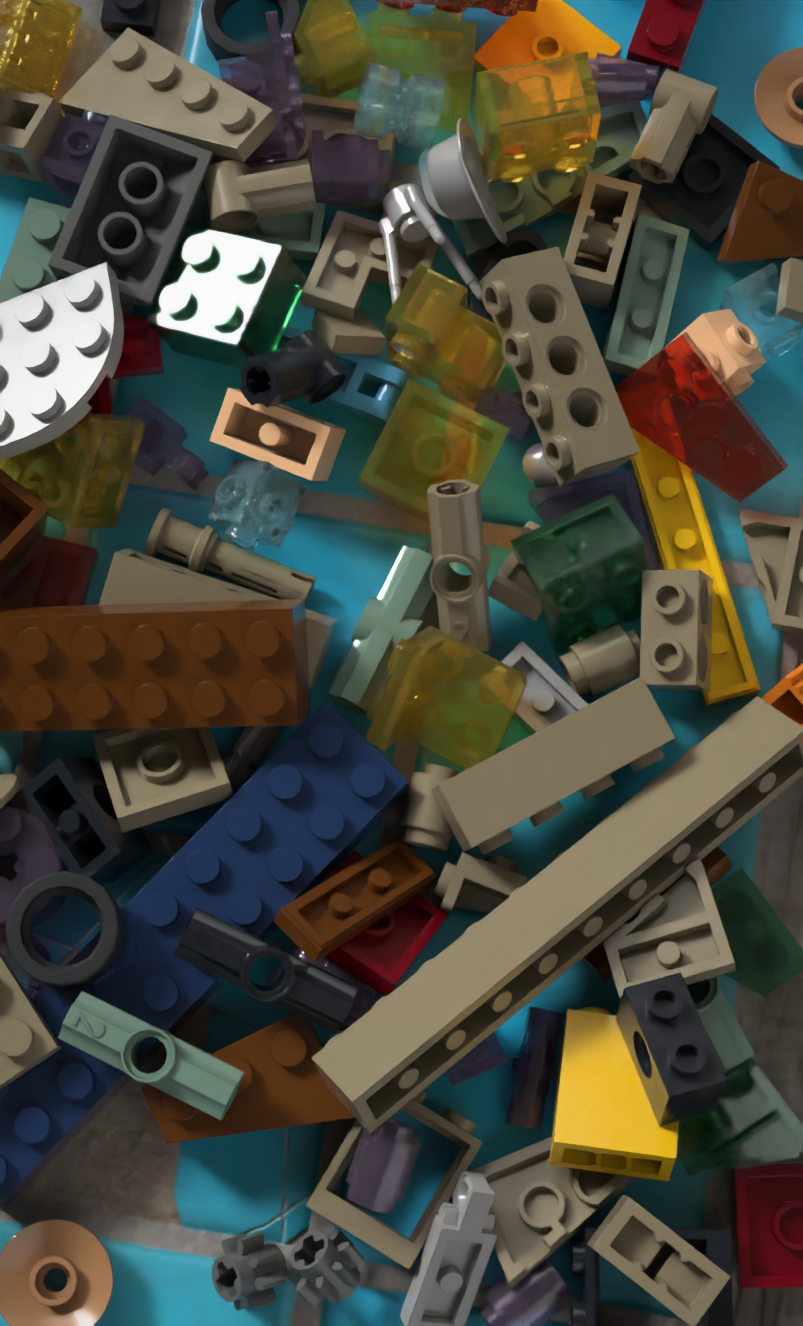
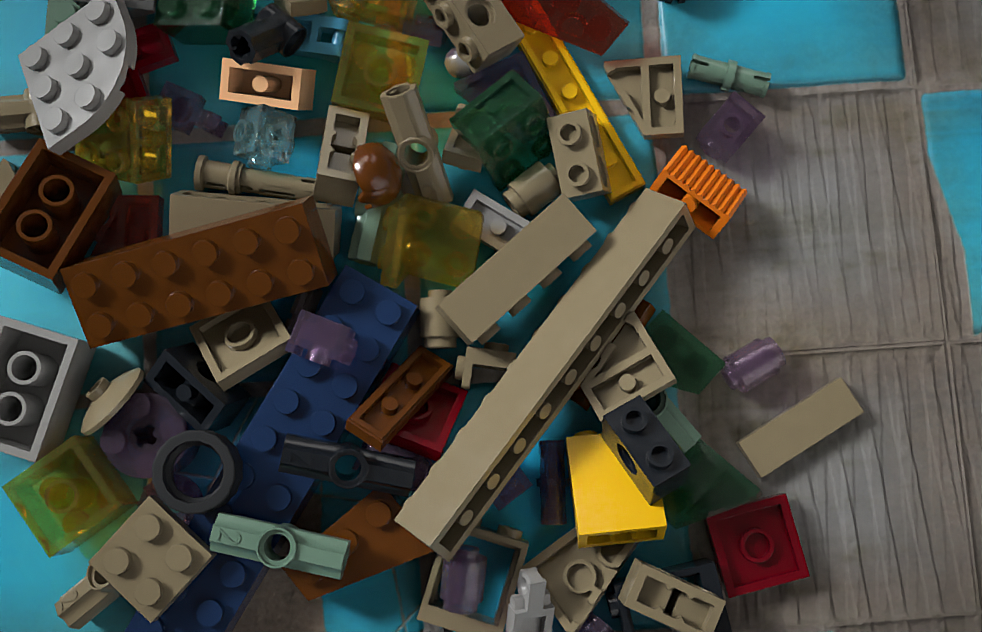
camera: 15 degrees left, 5 degrees up
(273, 795) = (322, 339): none -> clear purple brick
(353, 555) = (335, 174): none -> dark tan brick
(398, 593) = (376, 174): none -> reddish brown hair

